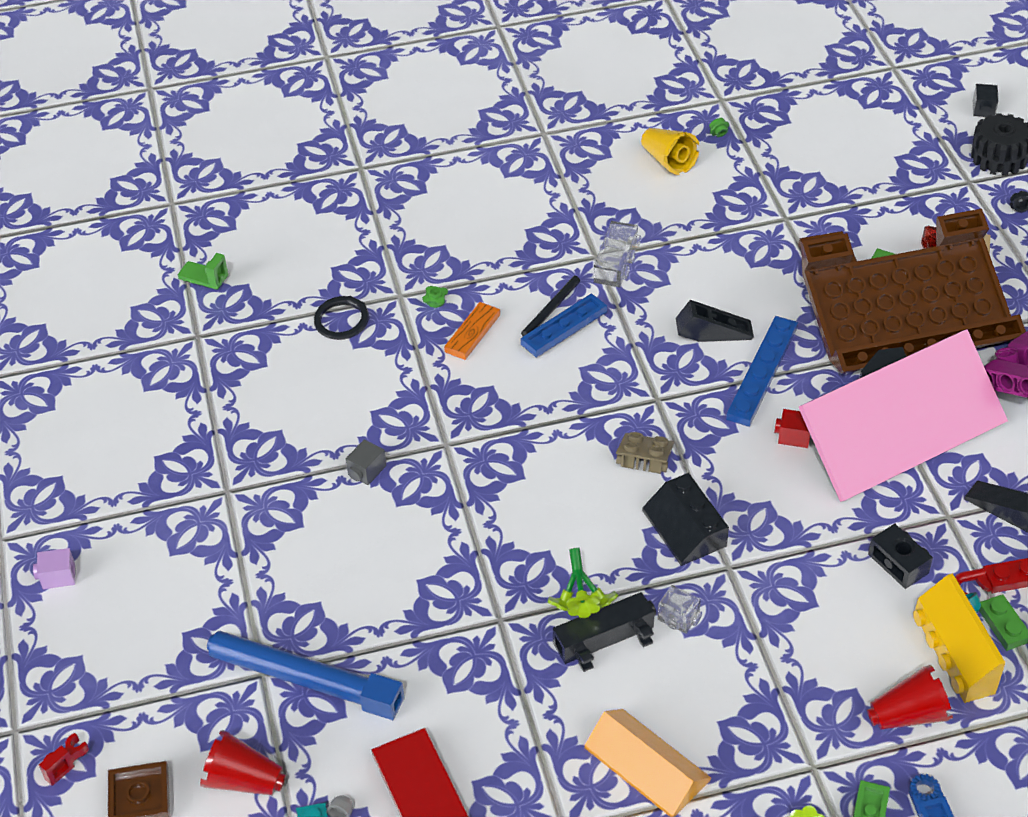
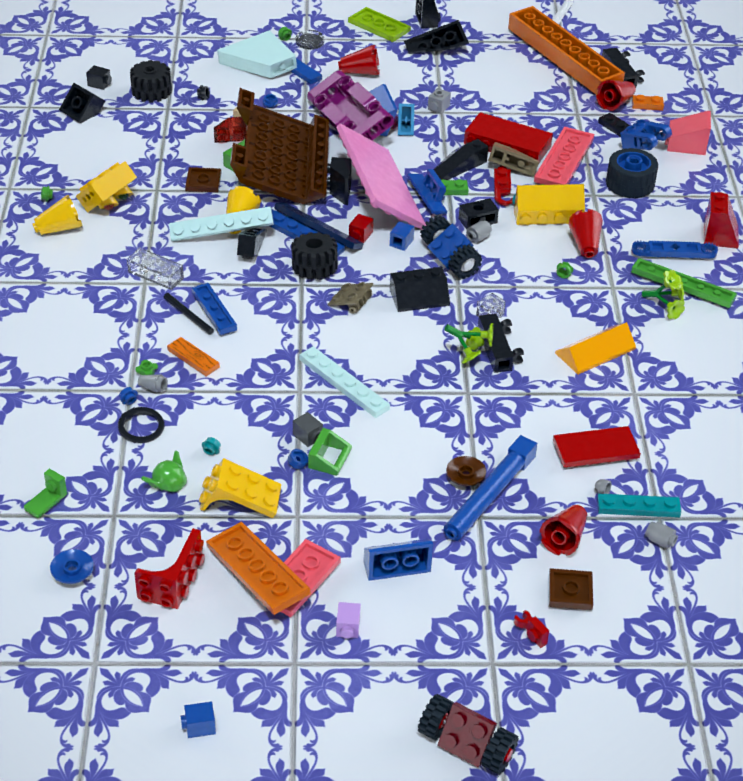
camera: 80 degrees left, 5 degrees down
(99, 401) = (172, 584): none -> red bracket
(105, 319) = (71, 566): none -> blue dish
(115, 465) = (258, 568): none -> orange plate
(119, 510) = (312, 566): none -> coral plate
(158, 592) = (398, 559): none -> blue slope
(240, 425) = (242, 486): none -> yellow bracket
(257, 358) = (168, 475): none -> bright green piece
(315, 466) = (297, 458): none -> blue tile
(316, 383) = (211, 446): none -> teal plate
(330, 630) = (466, 471): none -> reddish brown dish
(334, 482) = (328, 439): none -> bright green tile
(381, 293) = (128, 396): none -> blue plate
(409, 308) = (155, 383): none -> light grey cone
(473, 482) = (344, 382): none -> light aqua plate
(699, 389) = (314, 255): none -> black wheel
(722, 286) = (221, 224): none -> light aqua plate
(742, 164) = (107, 187): none -> yellow piece
(762, 296) = (241, 200): none -> yellow cone
(780, 385) = (318, 225): none -> dark blue tile
(801, 476) = (401, 236): none -> blue brick
(813, 514) = (451, 247): none -> plate
(817, 690) = (561, 272): none -> bright green plate
(856, 563) = (478, 231): none -> light grey brick
(918, 102) = (81, 104): none -> black slope
(922, 487) = (430, 190): none -> blue bracket
(959, 514) = (456, 187): none -> bright green plate

